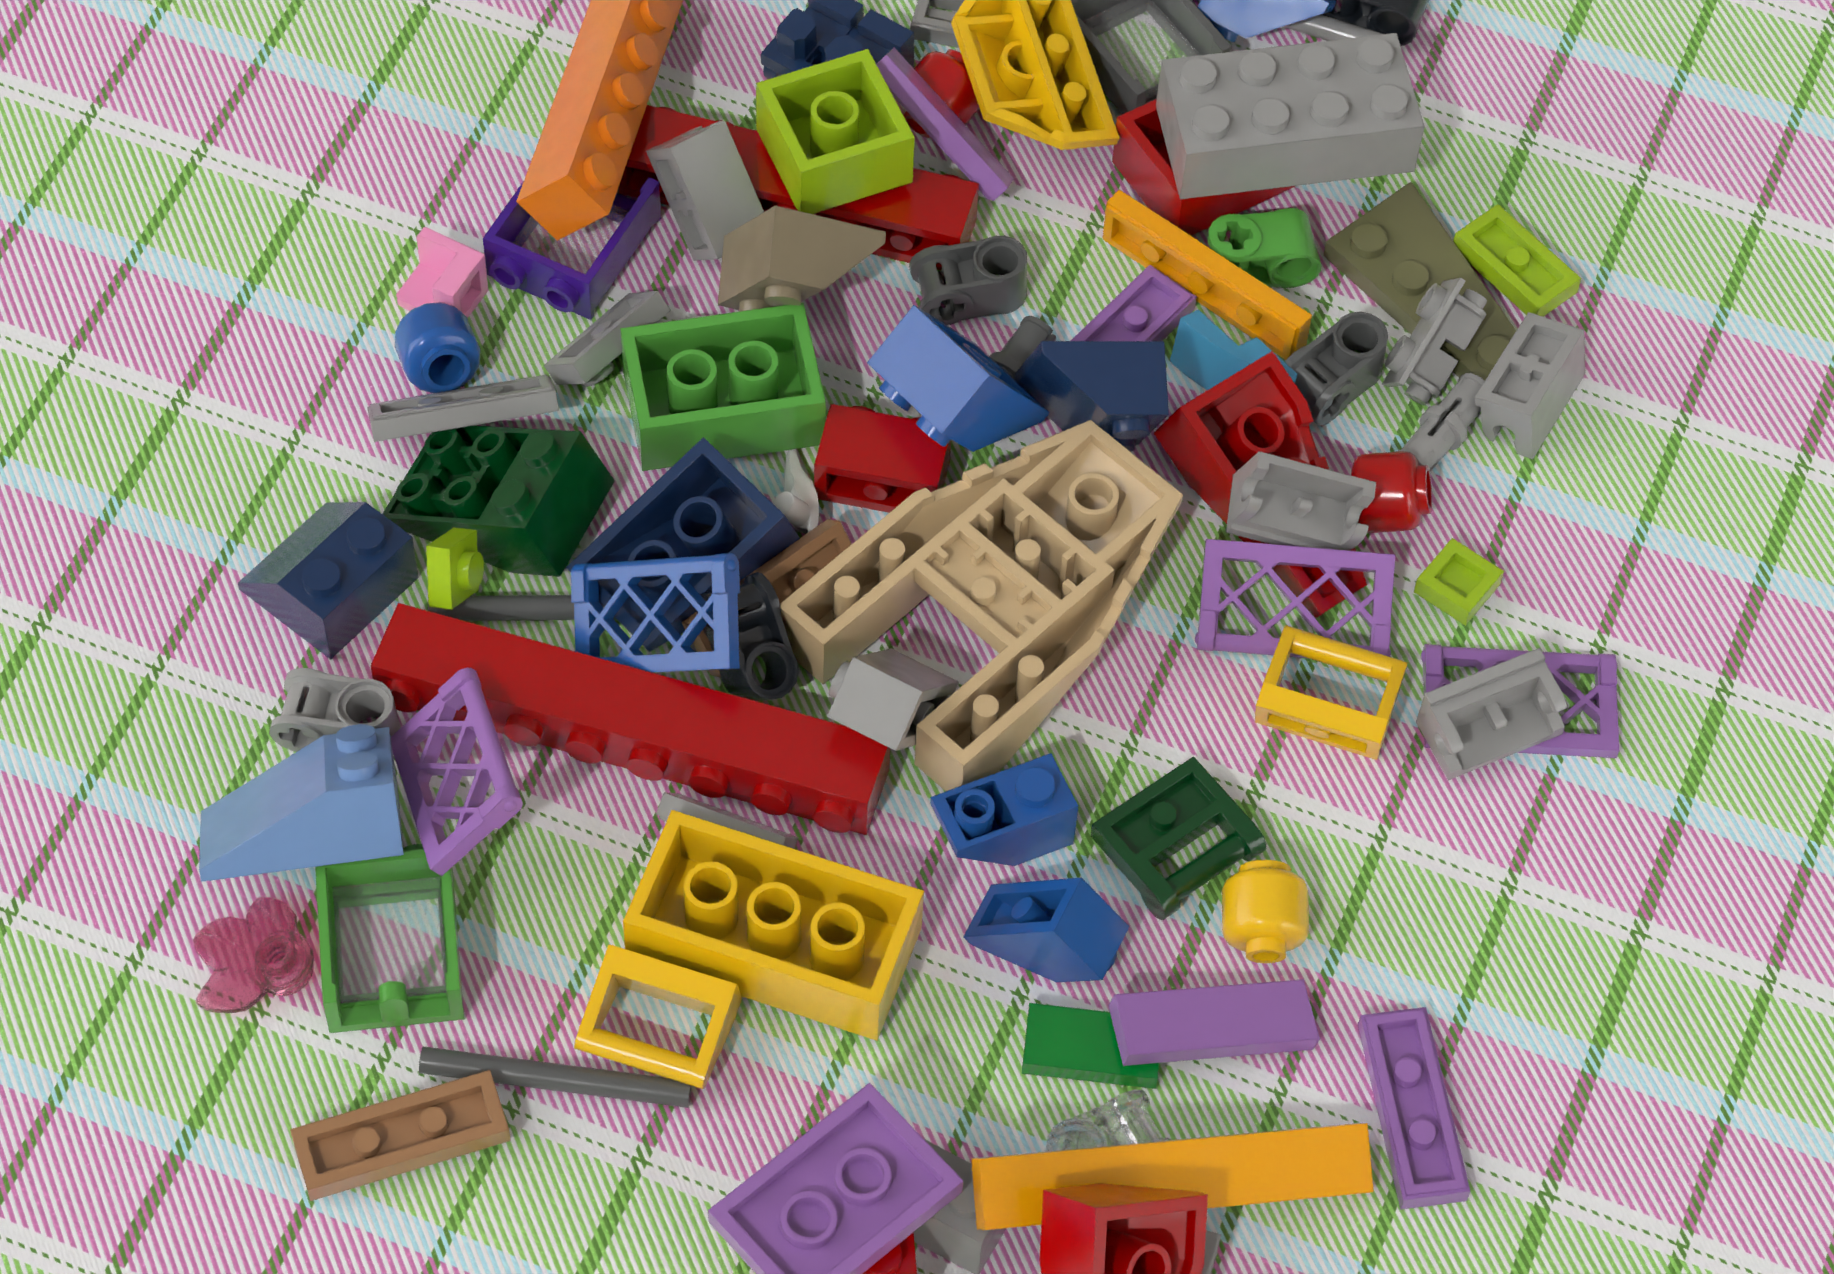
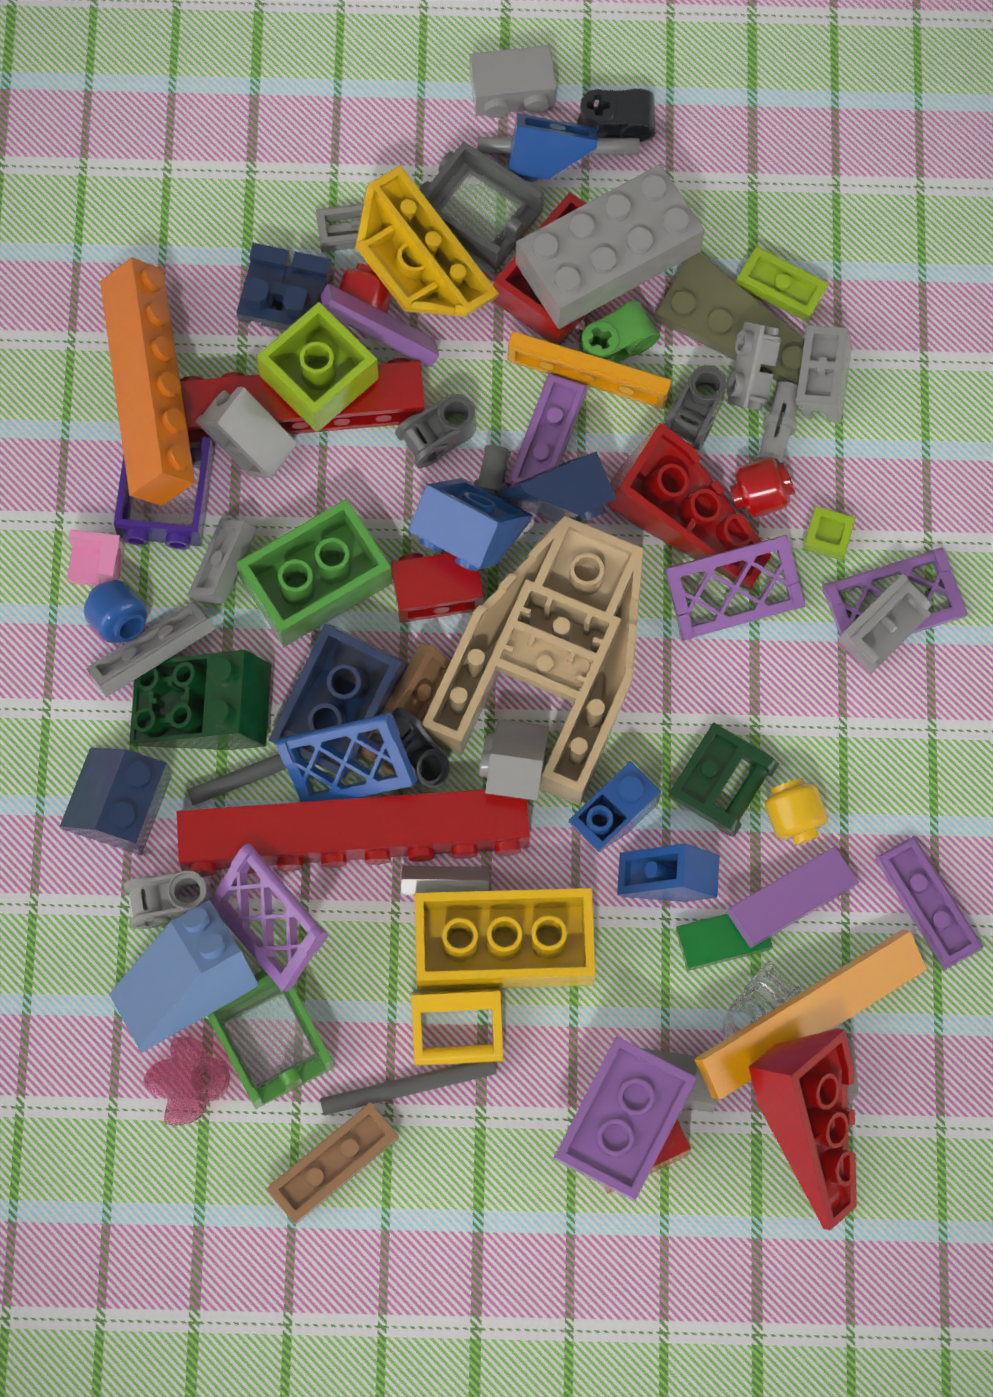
camera: 20 degrees left, 15 degrees up
(453, 568) = (199, 770): lime plate -> none
(789, 257) = (325, 472): dark tan slope -> none
(799, 497) = (396, 634): white bar -> none
(1210, 355) = (619, 431): dark azure slope -> none
(1297, 504) = (716, 527): light grey hinge -> none
(1322, 719) = (780, 666): yellow tile -> none

